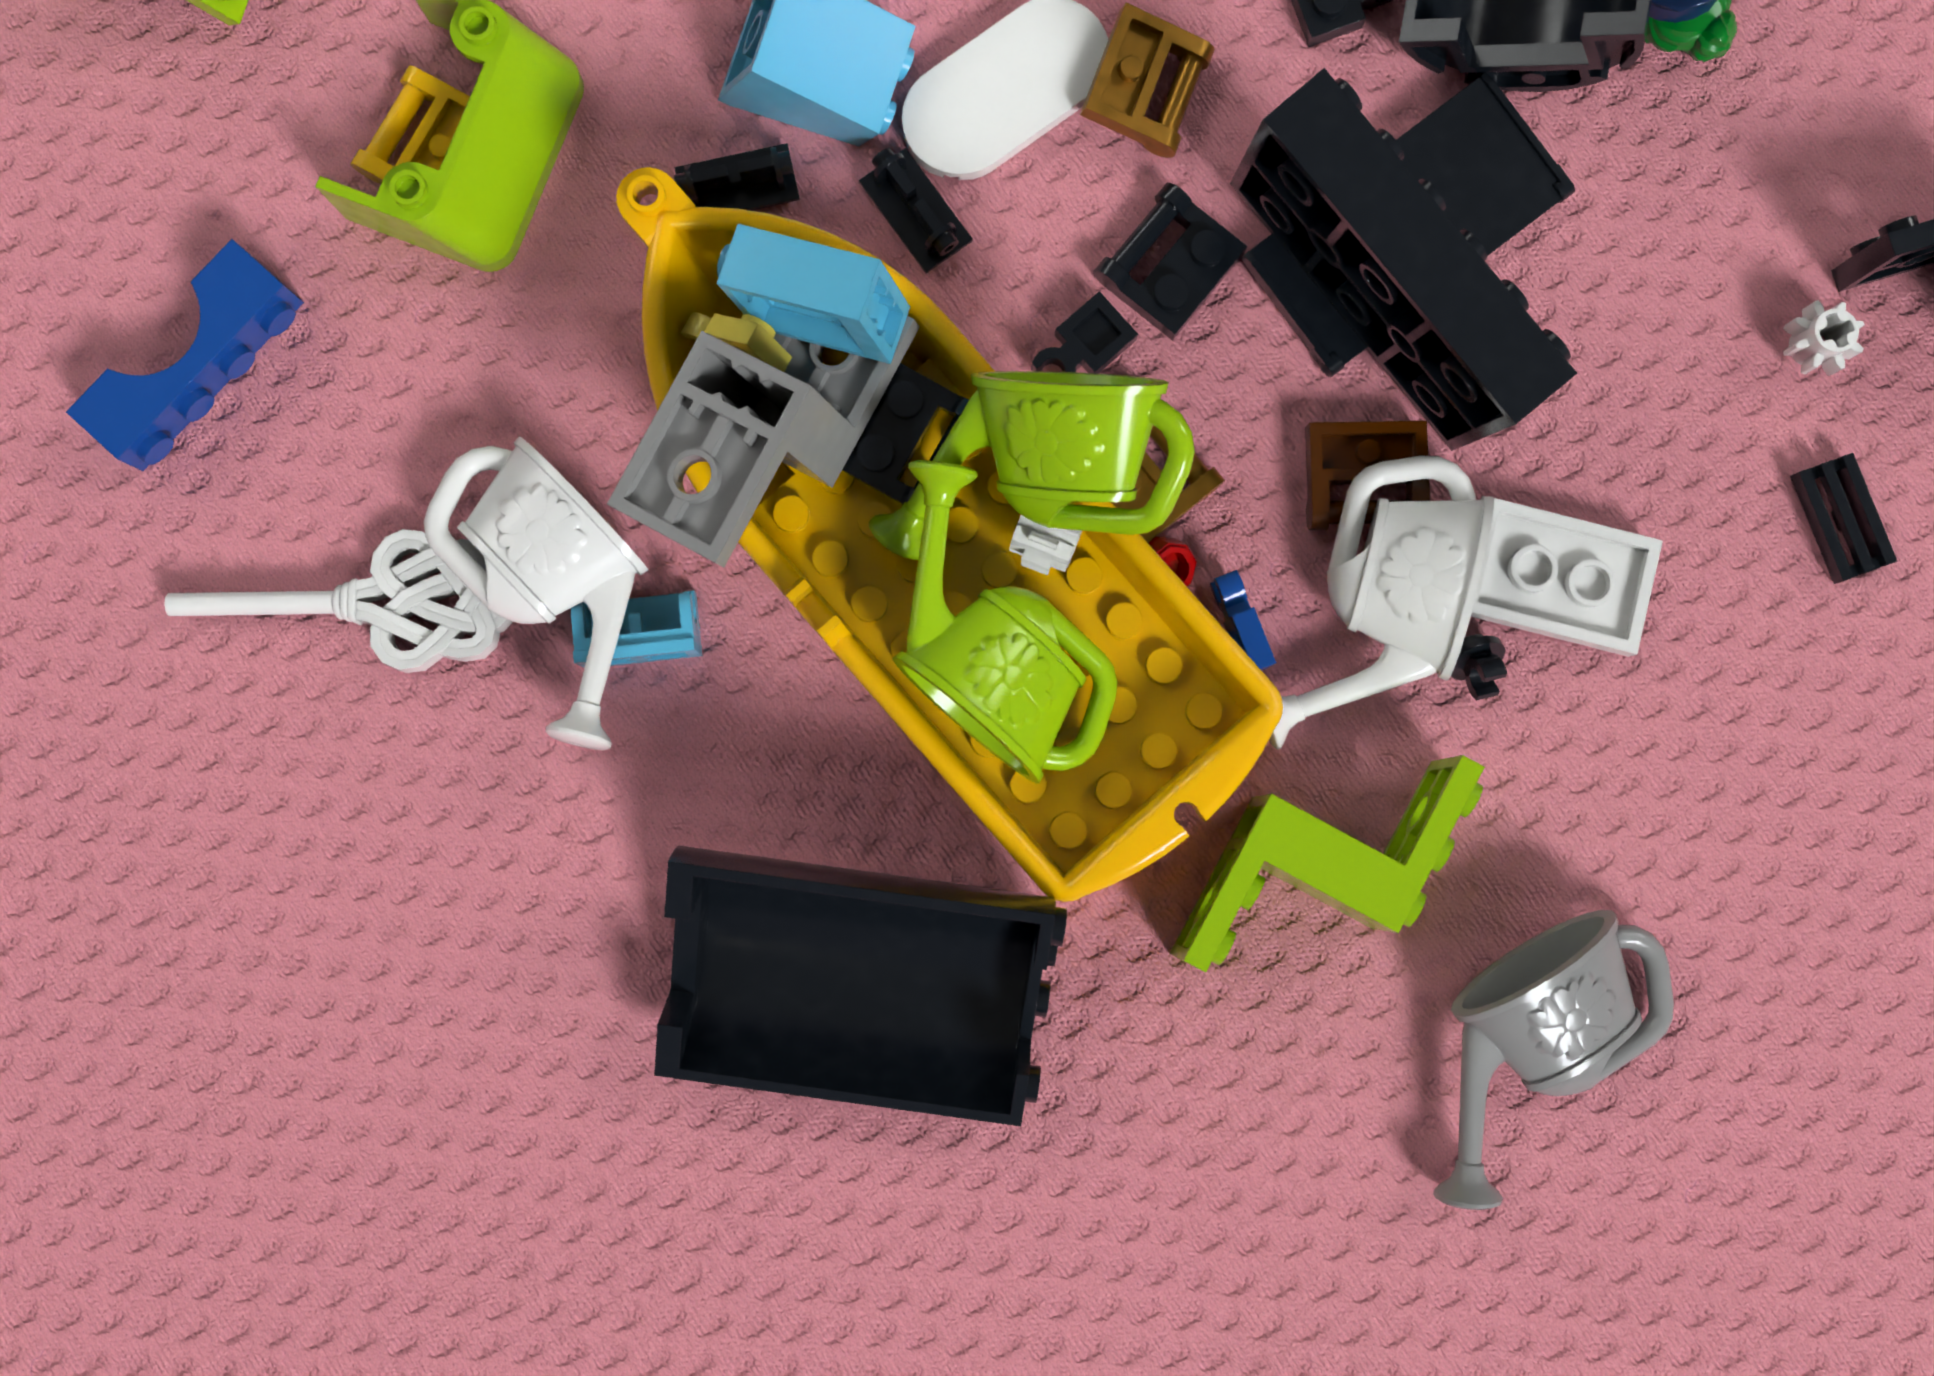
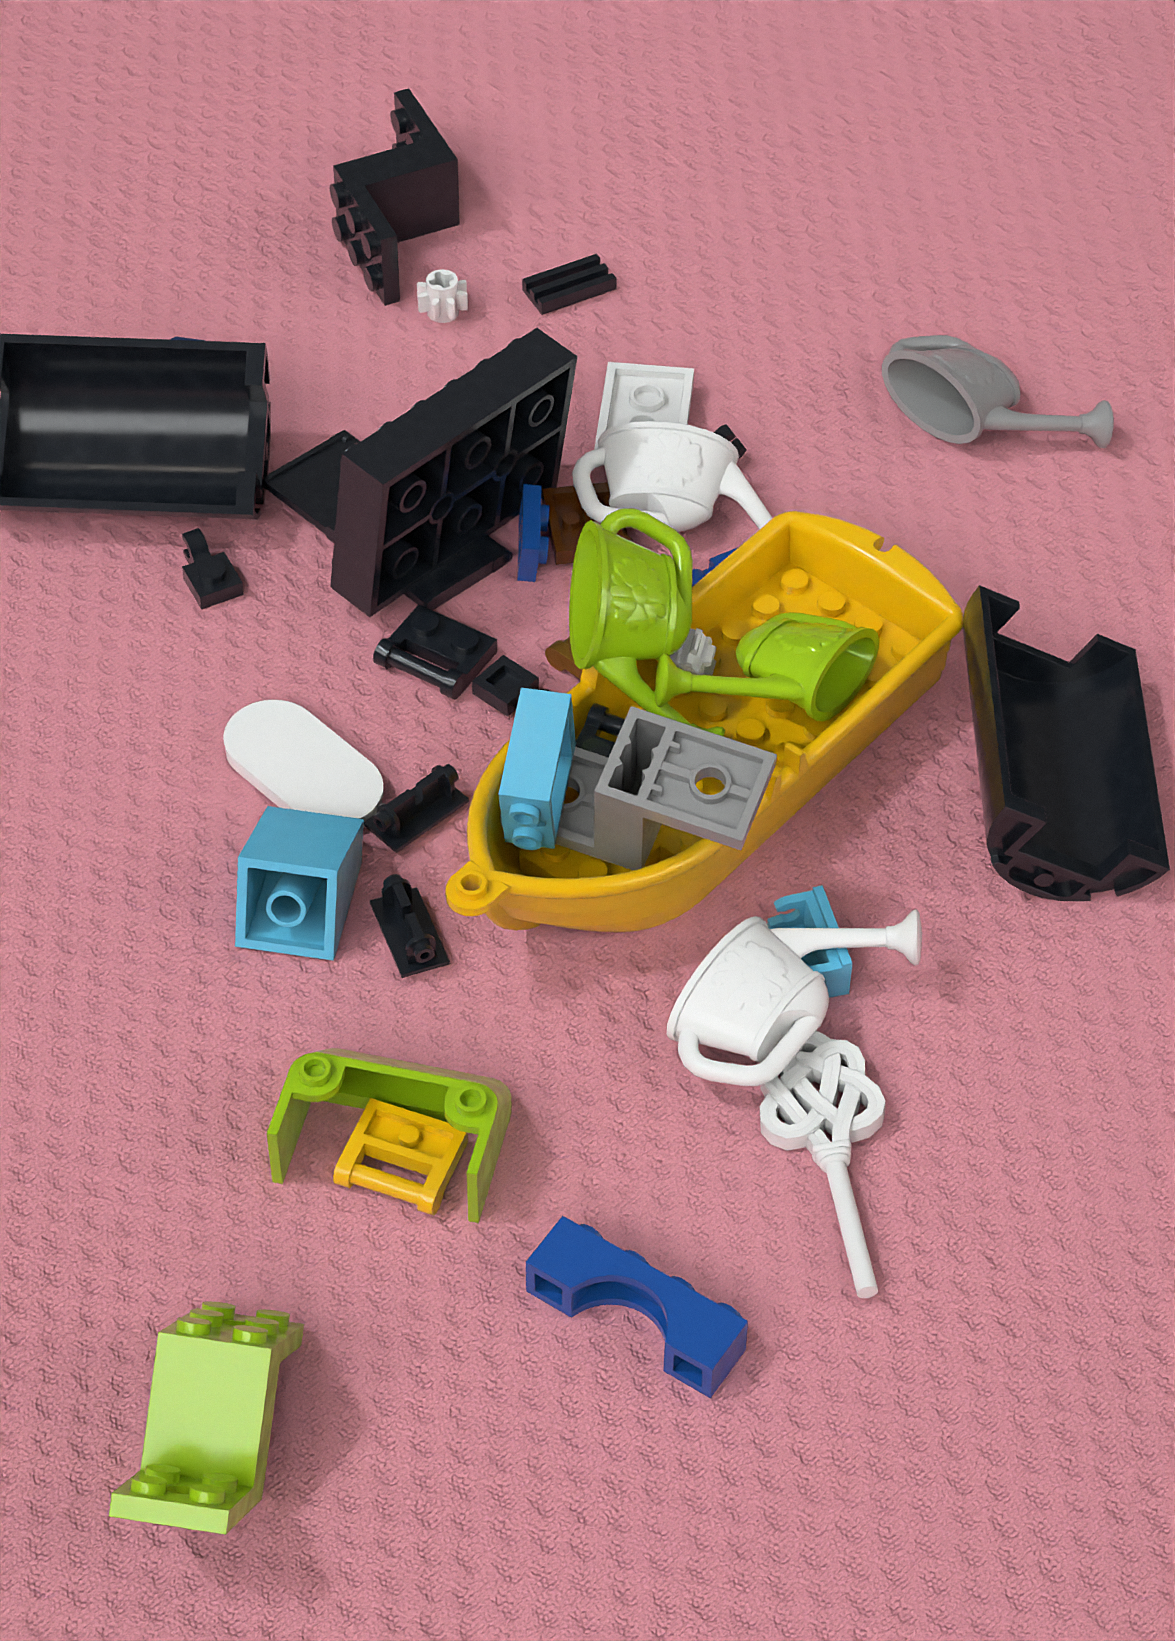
camera: 95 degrees left, 35 degrees down
(747, 334) = (574, 837): light yellow plate -> none
(1131, 72) = (289, 674): pearl gold plate -> none
(1330, 864) = (892, 480): lime bracket -> none
(1375, 401) = (531, 545): none -> blue plate

